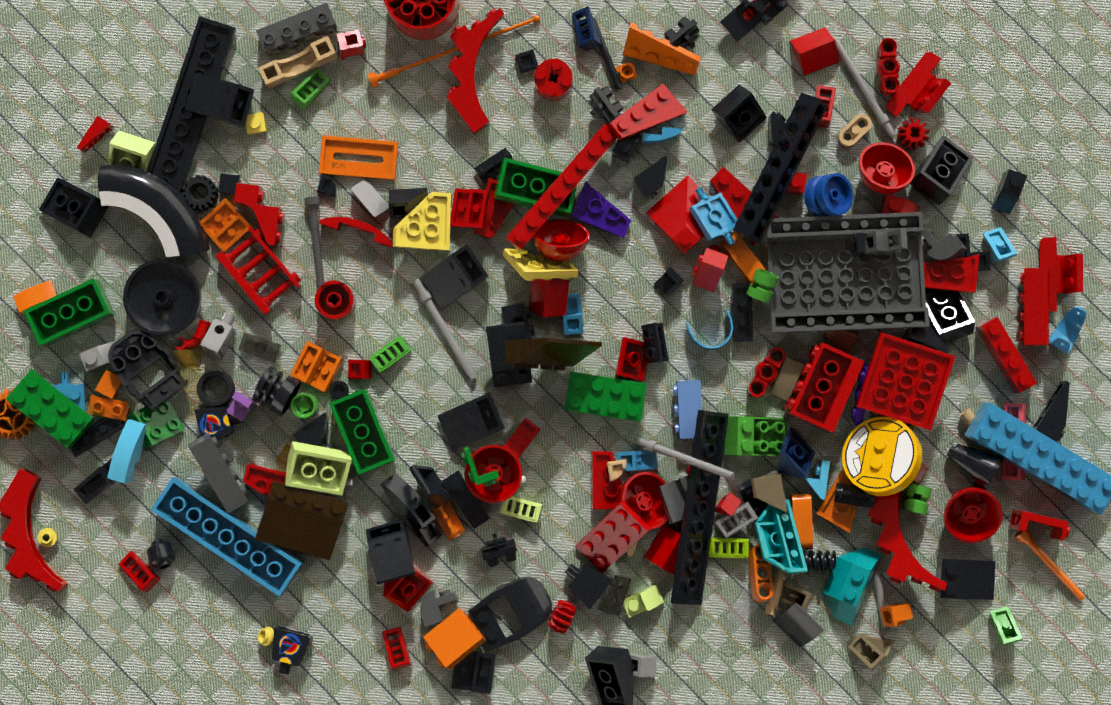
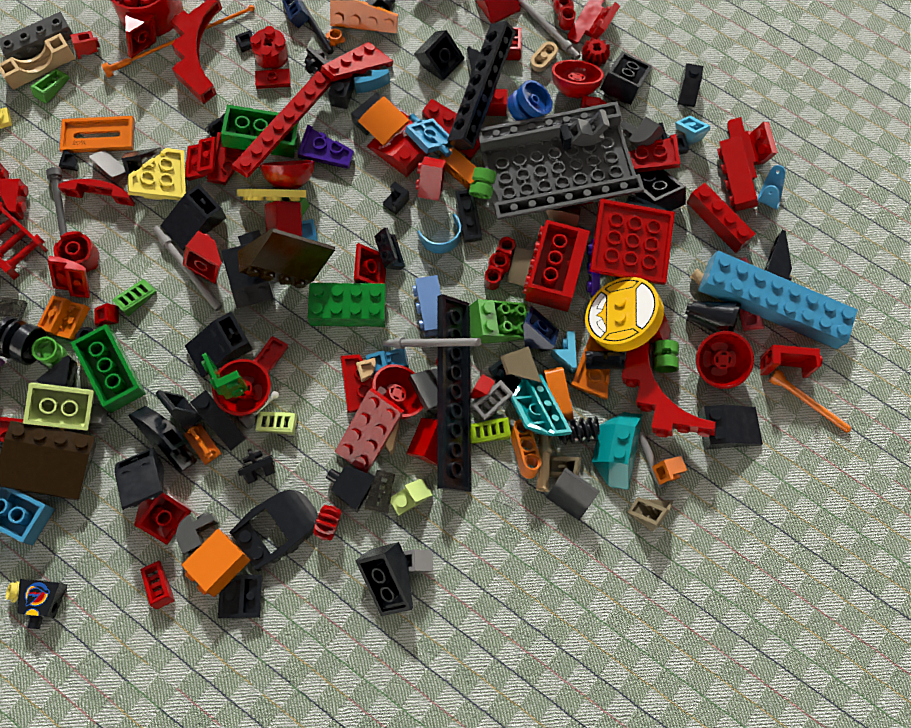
camera: 10 degrees left, 15 degrees down
(329, 327) = (68, 276): none -> red slope
(412, 44) = (139, 32): none -> red slope
(466, 327) = (203, 257): none -> red slope
(552, 115) = (272, 78): none -> red plate
(668, 195) = (383, 120): none -> orange slope
(1005, 626) = (782, 465): slope -> none

